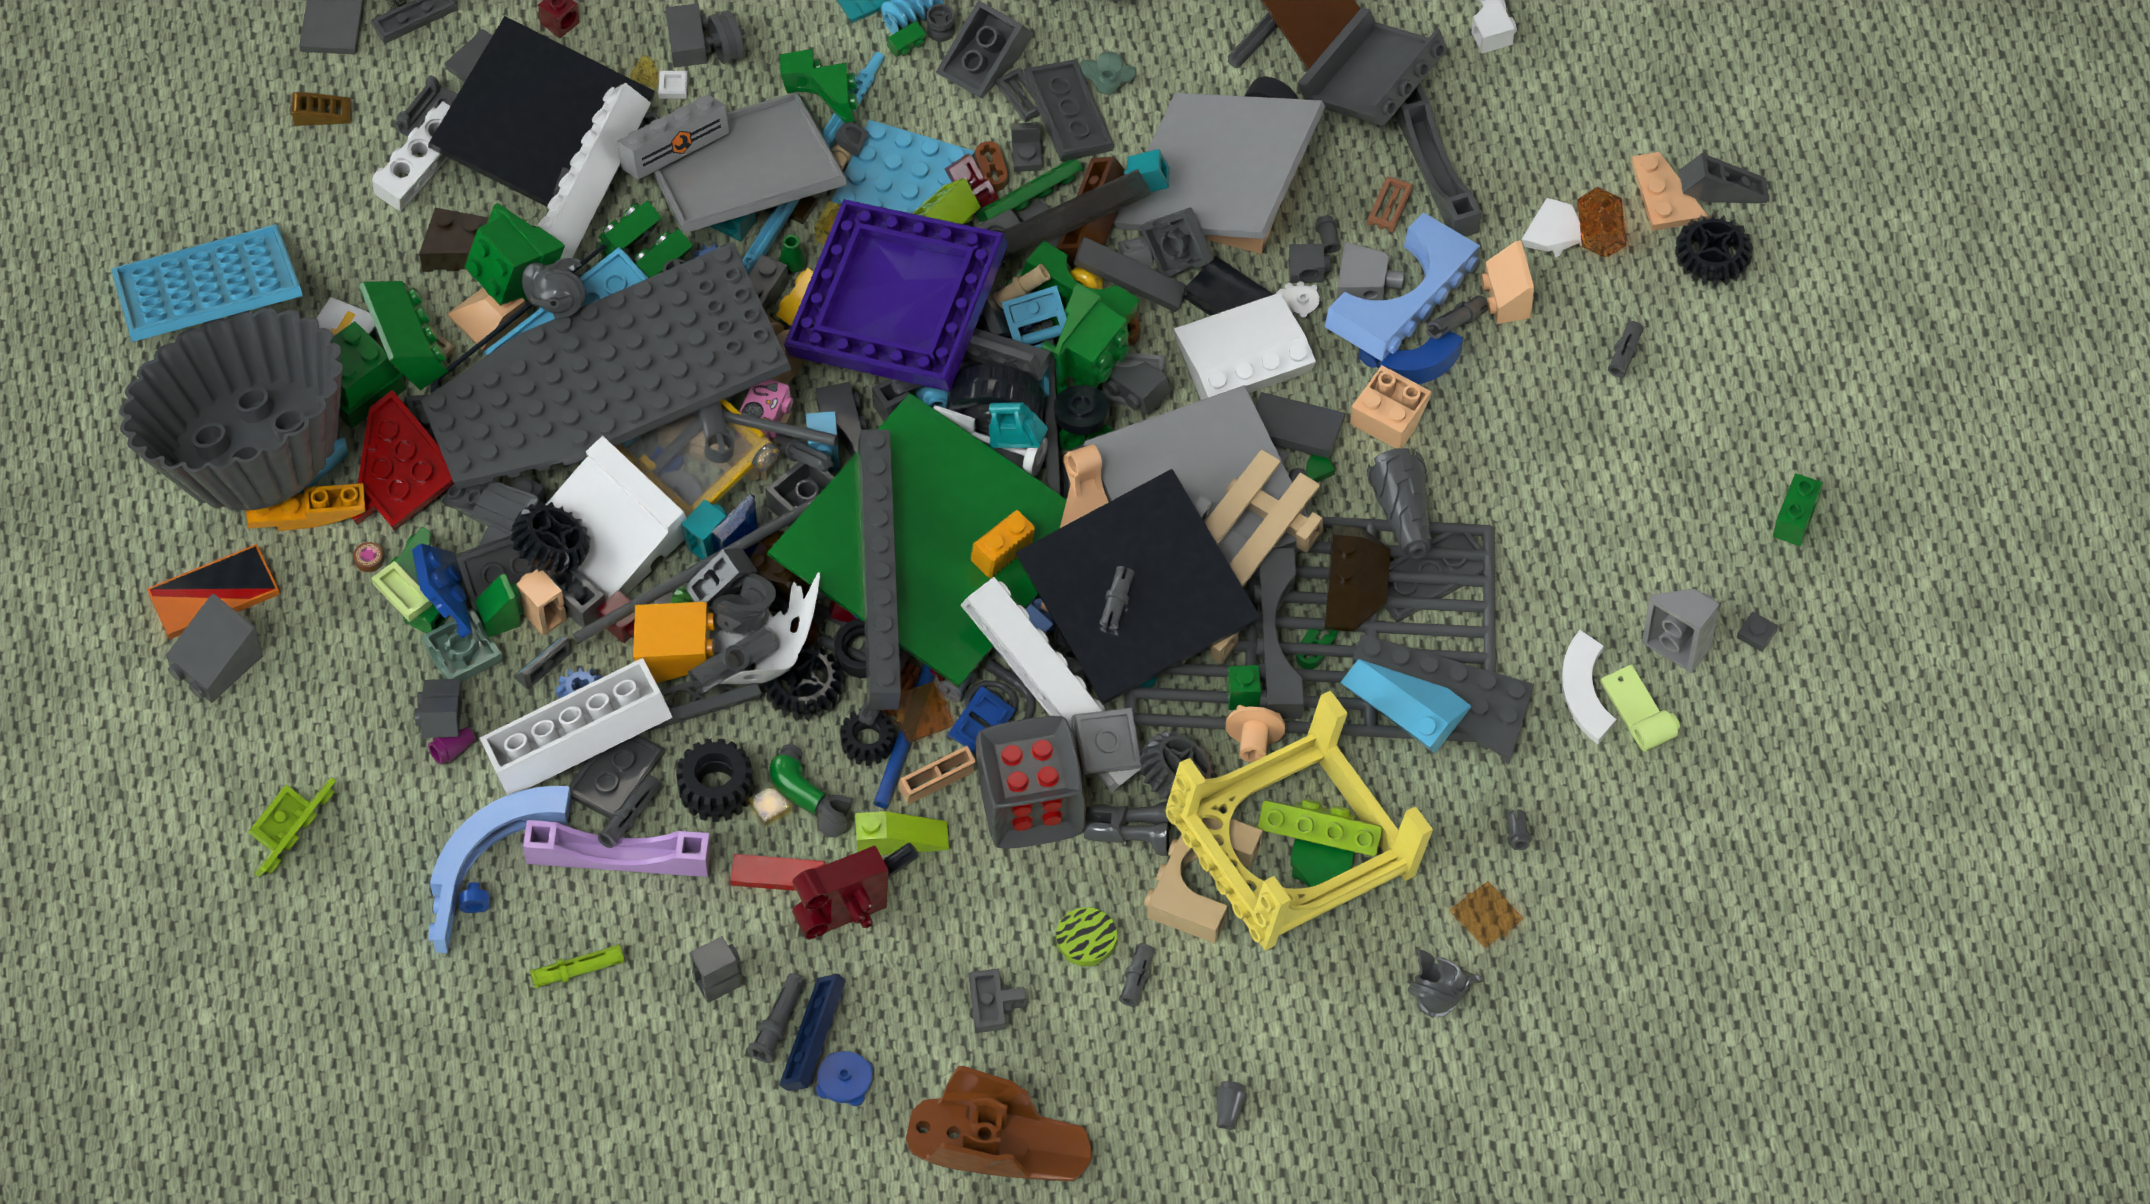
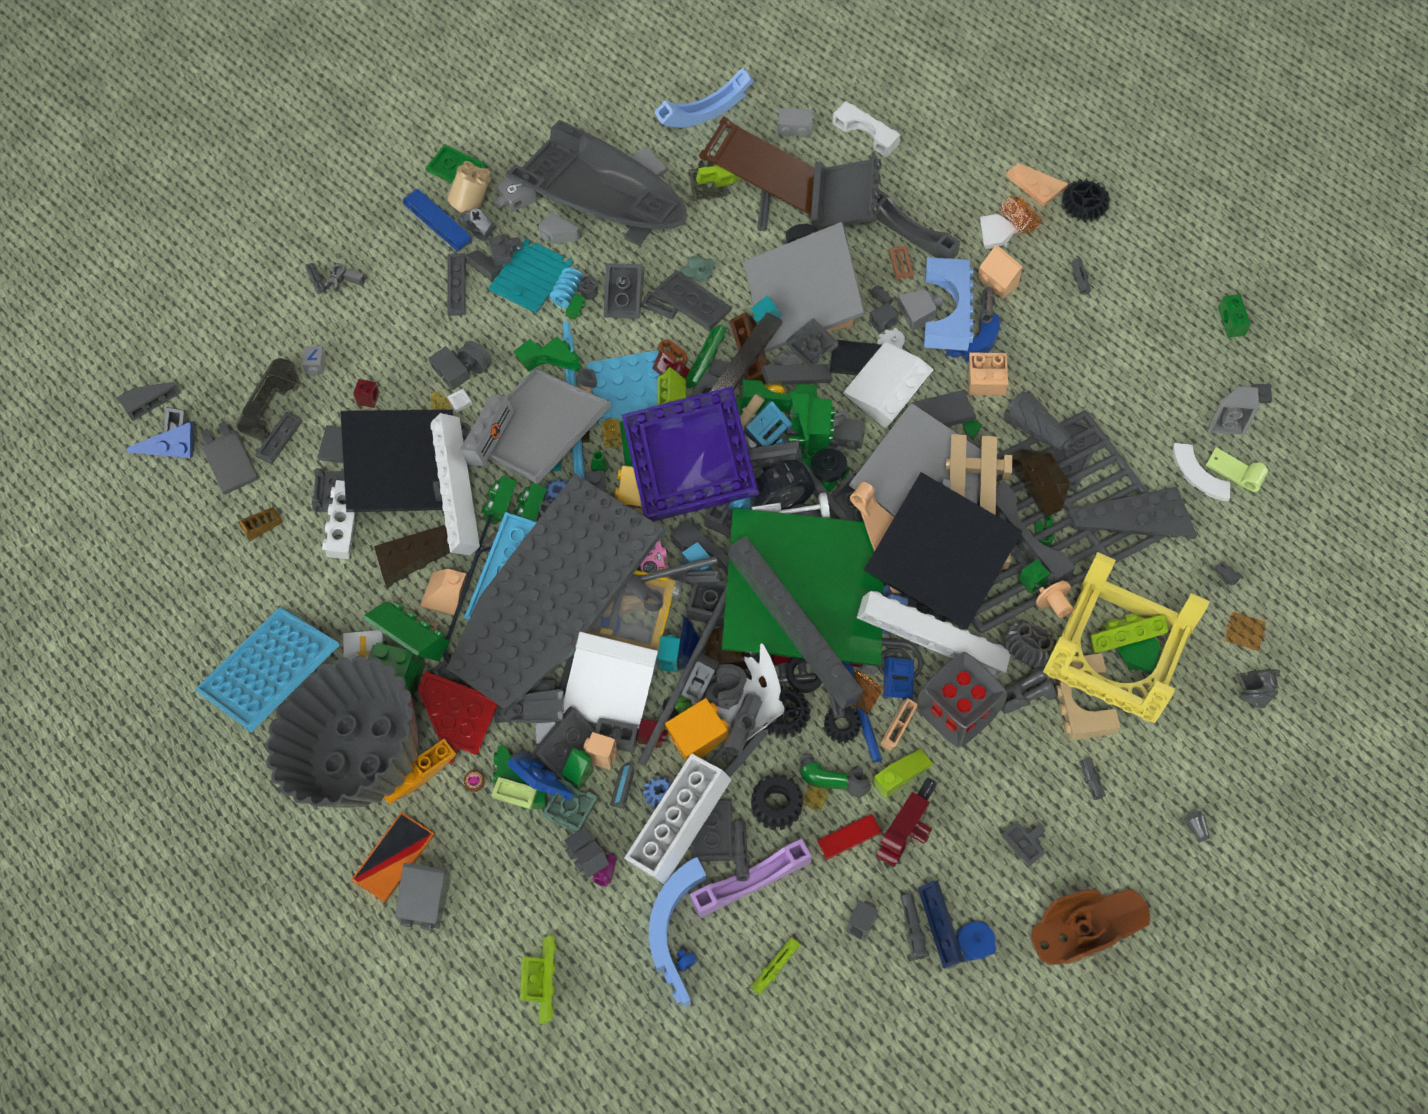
camera: 30 degrees left, 5 degrees up
(504, 251) = (446, 551): green piece -> none
(548, 542) = (587, 711): black gear -> none
(555, 287) = (487, 556): dark grey helmet -> none
(1001, 542) = (849, 567): light orange brick -> none
(1015, 426) = (808, 495): teal piece -> none
(1026, 146) = (683, 332): dark grey slope -> none
(1086, 936) = (1047, 771): lime tile -> none
(1106, 741) = (987, 648): light grey tile -> none
(1117, 597) = (939, 563): dark grey pin -> none
(1414, 705) = (1130, 534): medium azure wedge -> none
(1722, 182) = (1063, 162): dark grey slope -> none

